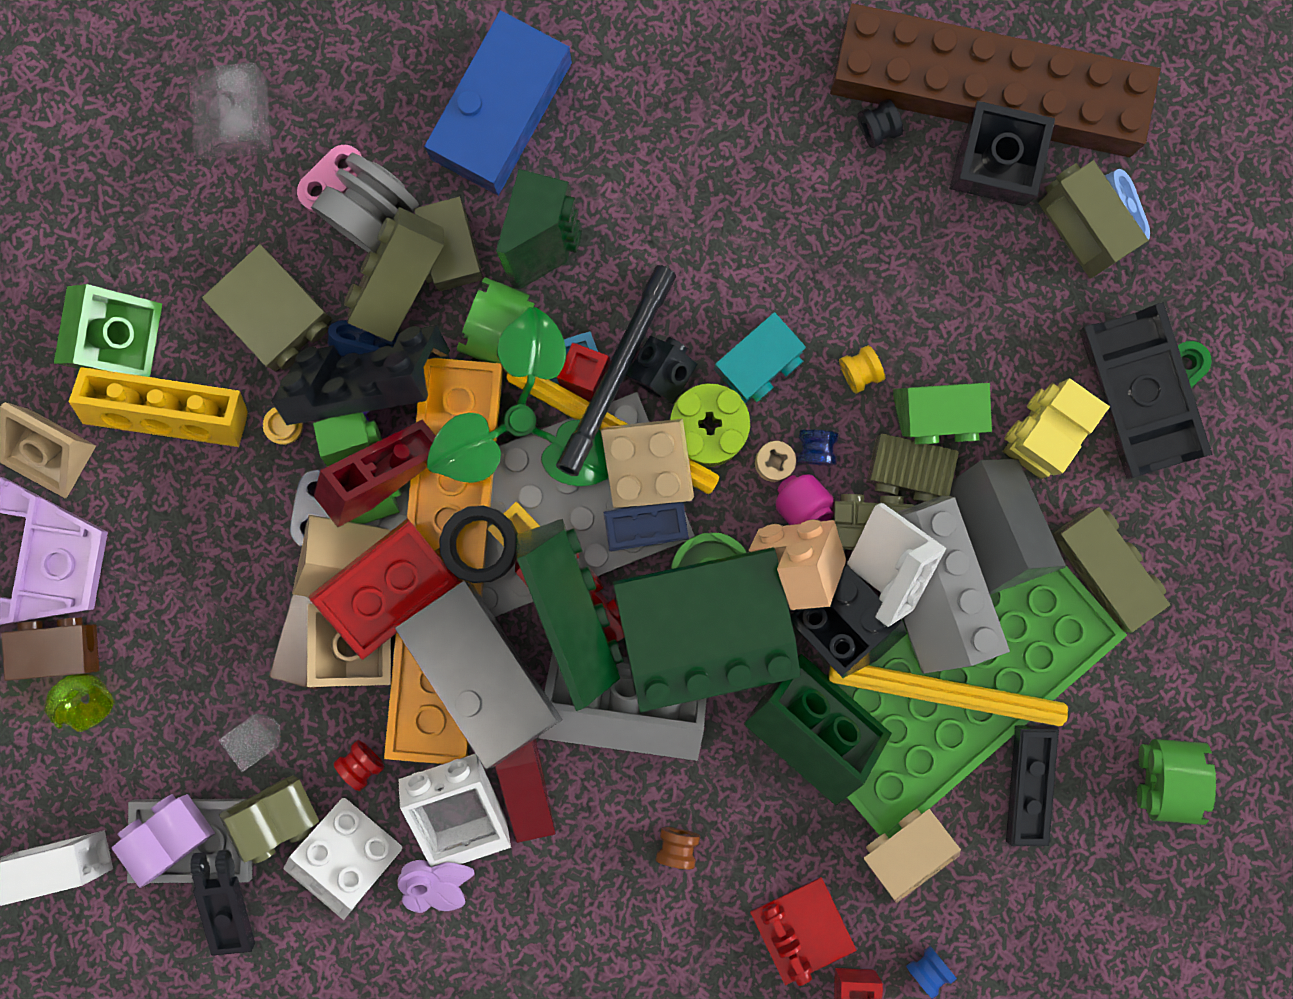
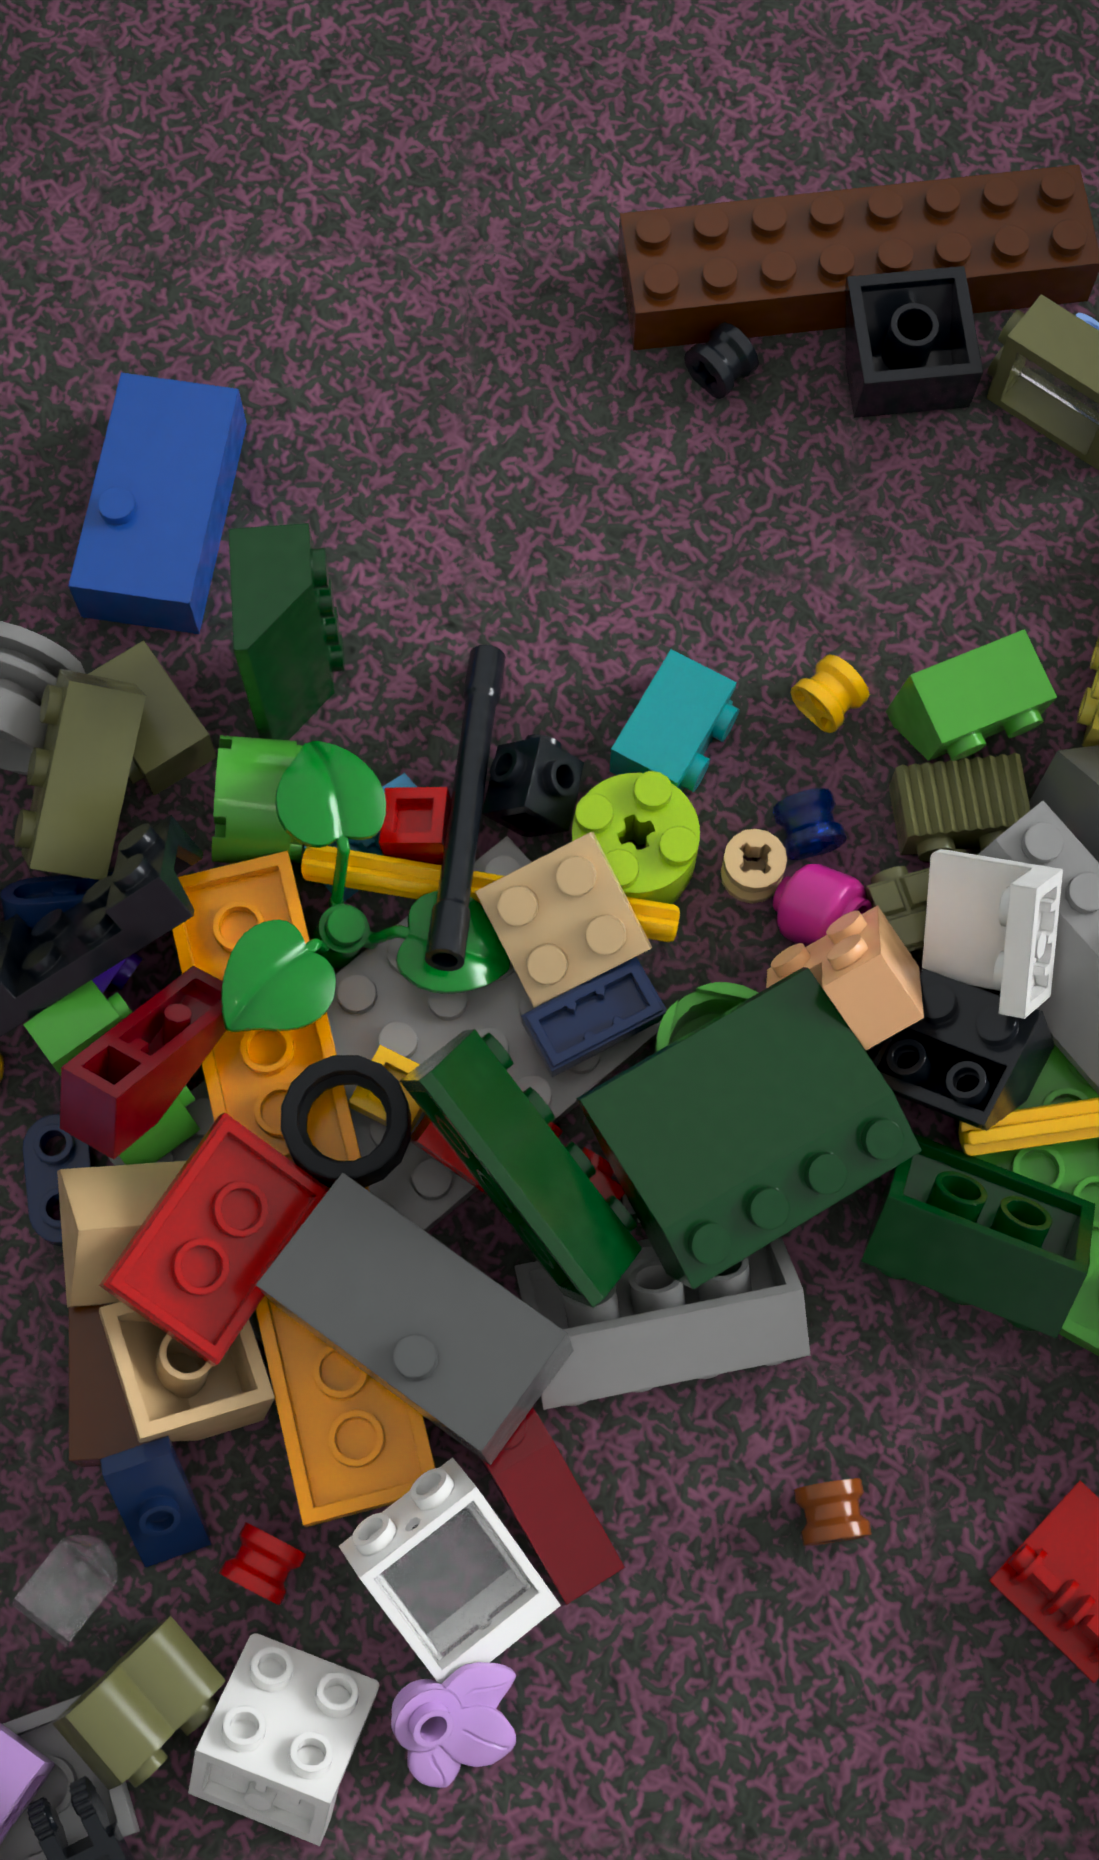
camera: 20 degrees left, 15 degrees down
(309, 714) = (155, 1501): none -> dark blue plate

